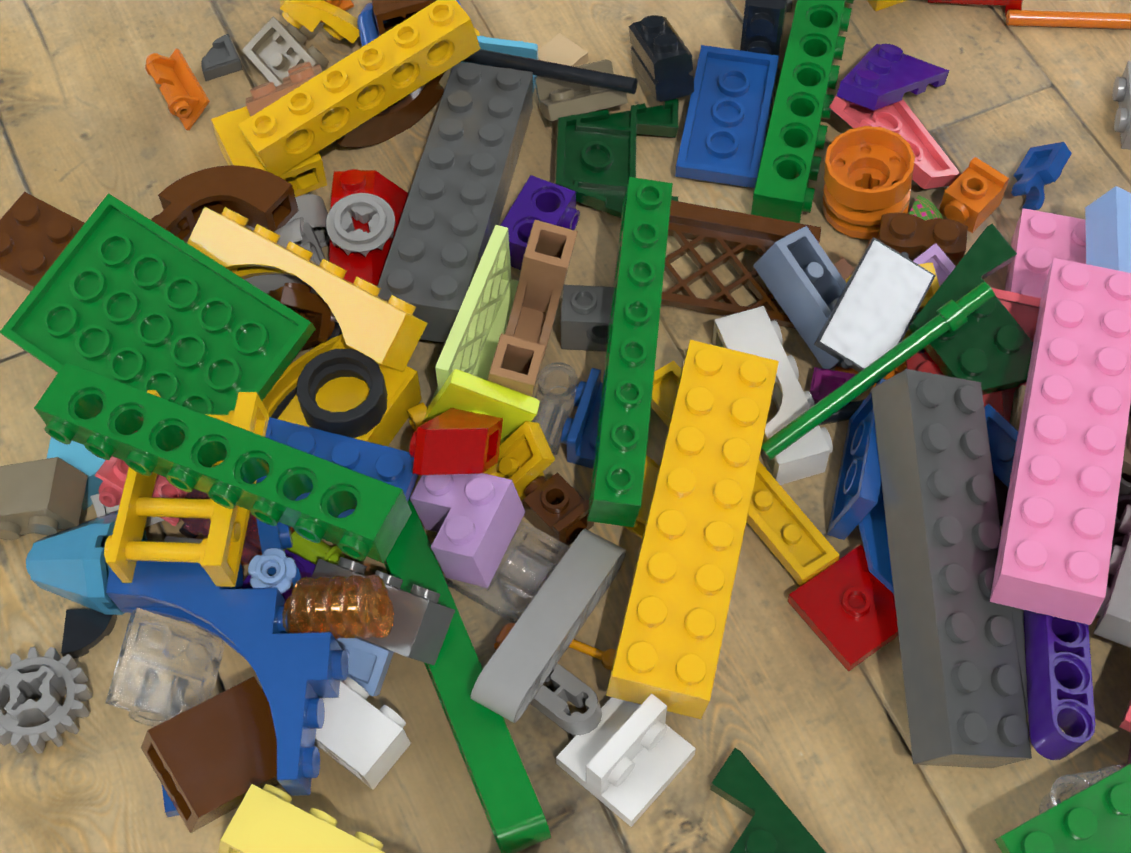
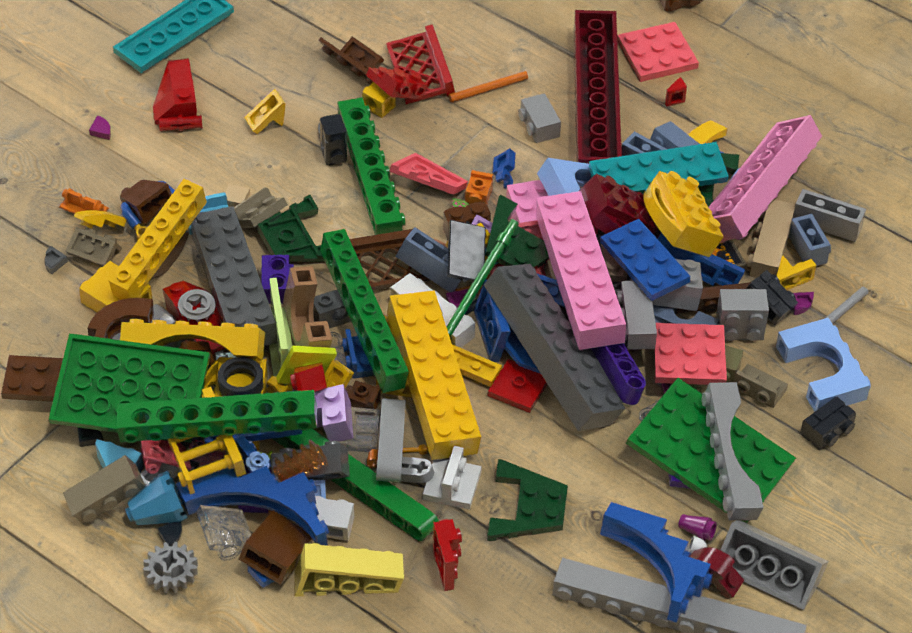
camera: 30 degrees left, 10 degrees down
(178, 86) = (44, 280): orange hinge -> none
(267, 93) = (113, 257): nougat plate -> none
(555, 71) = (246, 201): black bar -> none
(661, 58) = (292, 177): black brick -> none
(727, 116) = (339, 194): blue plate -> none
(866, 177) = (426, 199): orange wheel -> none
(886, 75) = (408, 147): dark purple wing -> none

